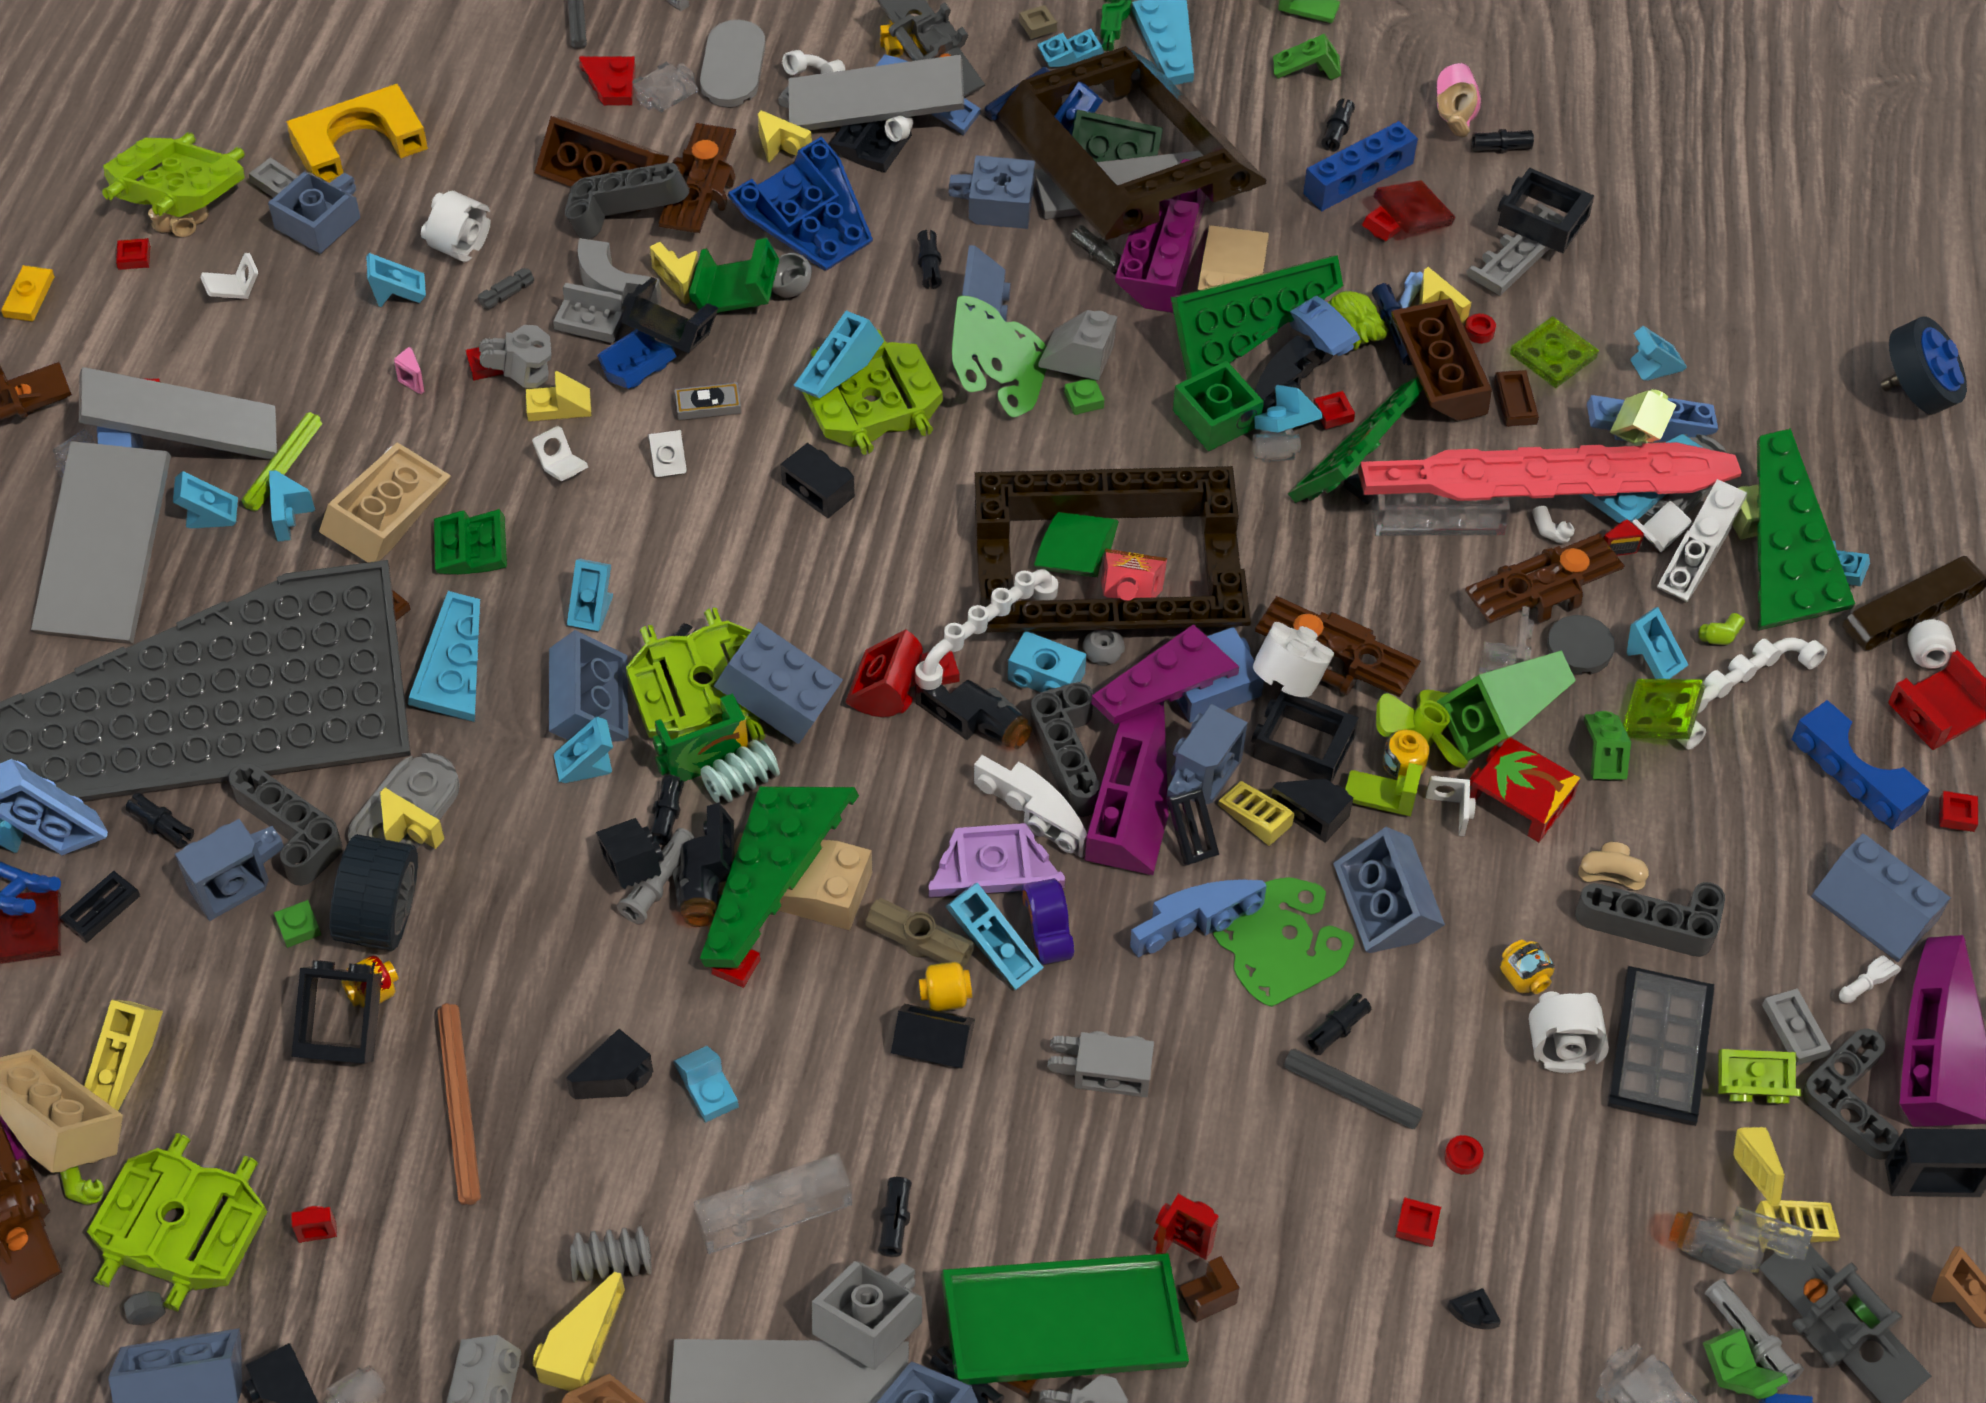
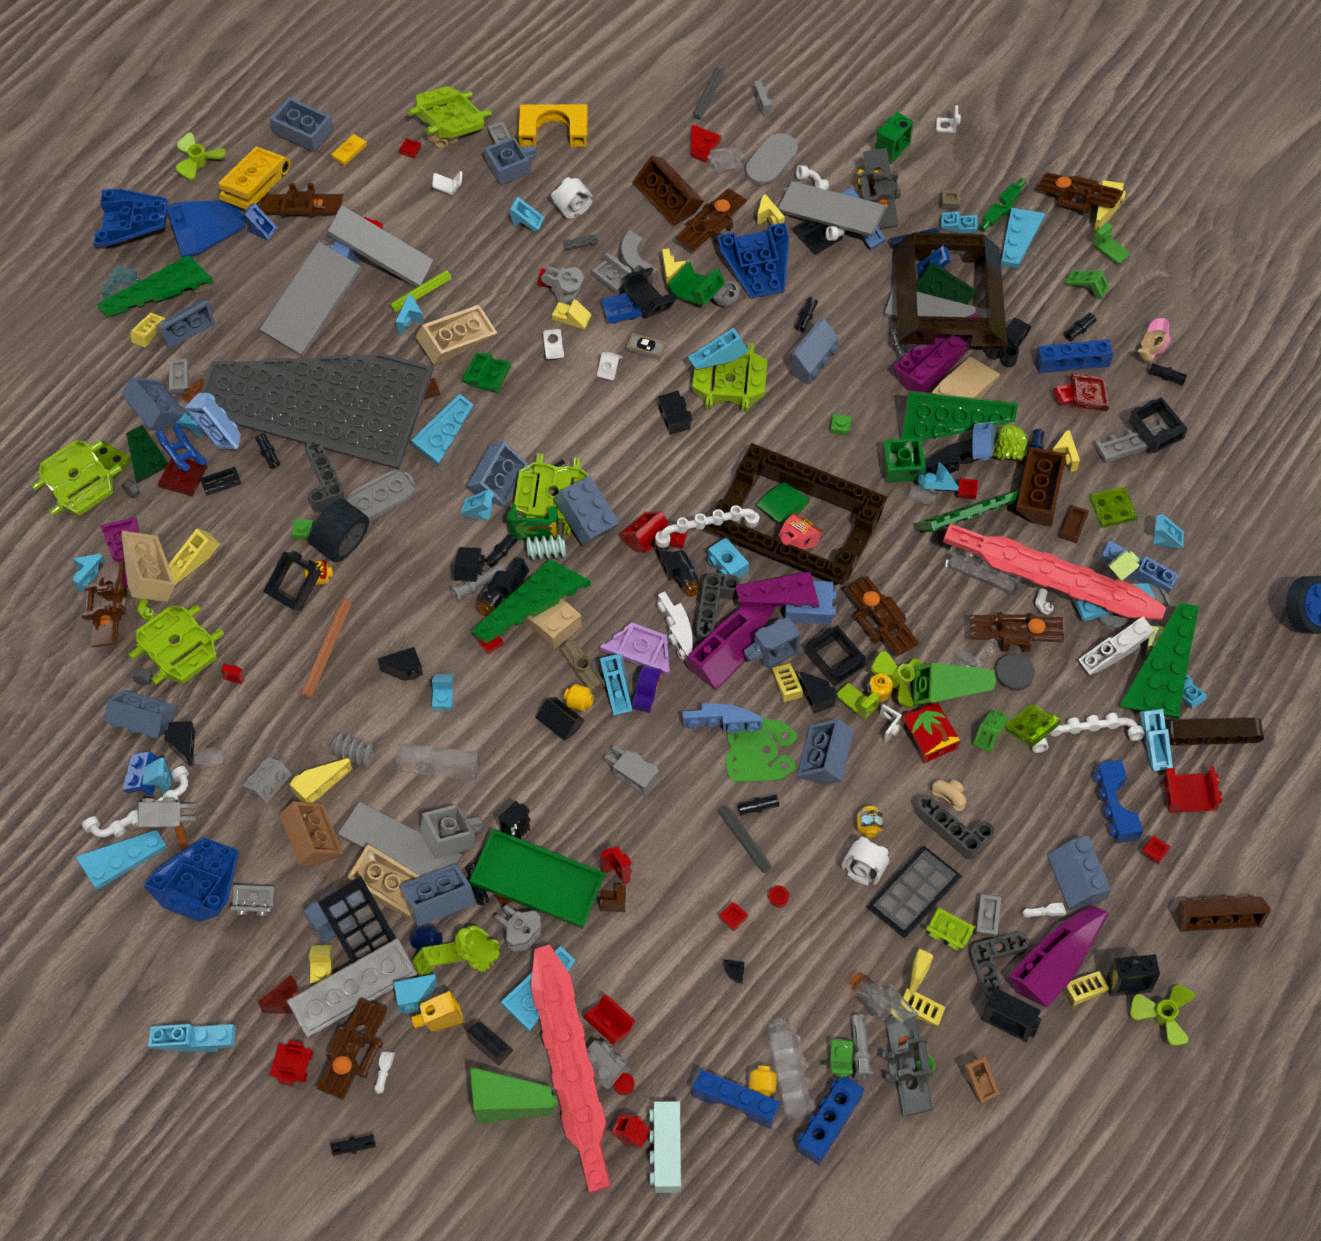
camera: 30 degrees right, 5 degrees up
(204, 503) = (371, 297): medium azure slope -> none
(228, 866) = (283, 487): sand blue hinge -> none
(404, 817) = (373, 500): light yellow slope -> none
(409, 371) = (507, 267): bright pink slope -> none
(589, 595) = (526, 425): medium azure slope -> none
(622, 192) = (664, 212): dark grey beam -> none
(892, 1238) = (494, 789): black pin -> none
(972, 1236) = (515, 820): none -> black brick
(997, 191) = (865, 291): sand blue hinge -> none
(998, 340) = (810, 376): bright green piece -> none
(1081, 345) = (854, 397): light grey slope -> none
(1103, 654) = (762, 567): light grey plate -> none
(1184, 798) = (749, 658): black tile -> none
(1263, 200) = (1016, 333): none -> black piece
(1292, 659) = (848, 612): white brick -> none
(1412, 287) = (1054, 441): light blue piece -> none
(1480, 328) = (1081, 476): red tile -> none
(1624, 538) = (1074, 626): red slope -> none
(1657, 644) = (1052, 691): medium azure slope -> none
(1664, 526) = (1102, 629): white bracket -> none
(1722, 633) = (1096, 700): lime arm -> none
(1847, 649) = (1156, 739): none -> medium azure slope
(1931, 643) = (1205, 755): white head -> none

